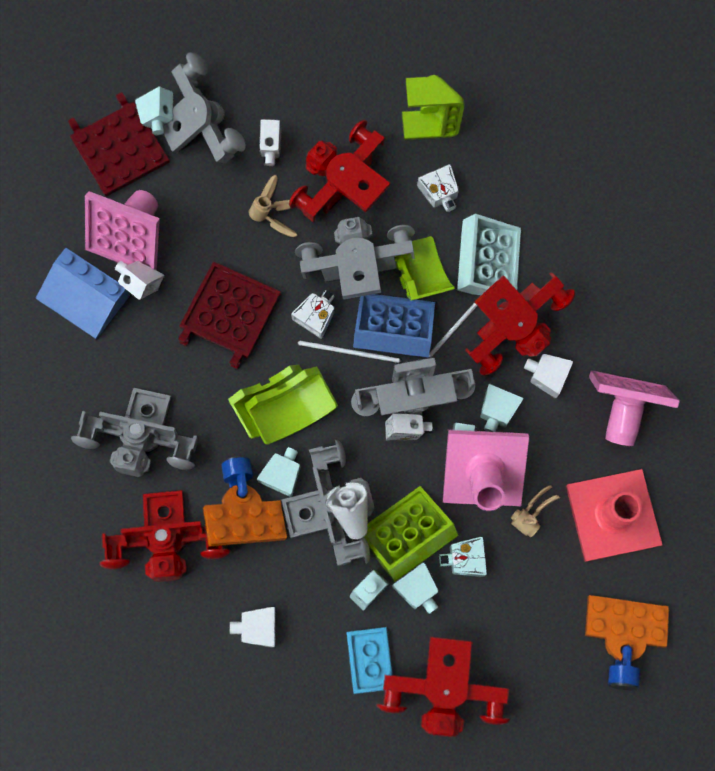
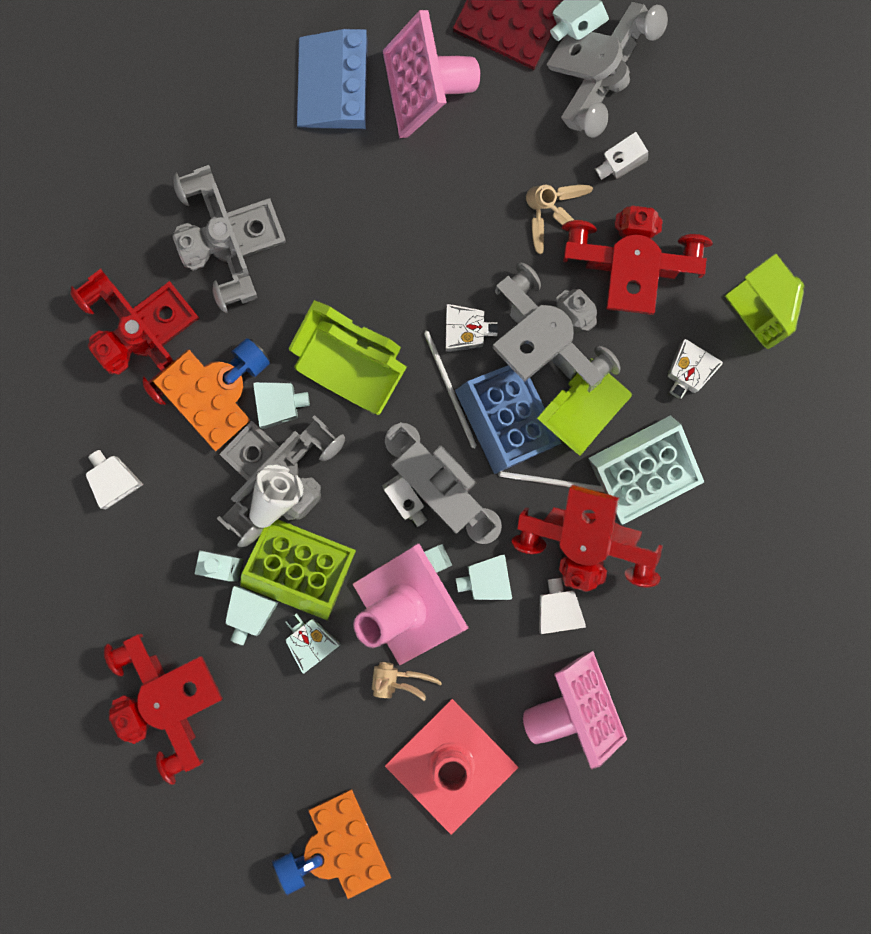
camera: 60 degrees right, 10 degrees up
(139, 278) = (382, 125): white torso -> none
(229, 311) = (411, 240): dark red plate -> none
(369, 659) = (151, 608): medium azure tile -> none

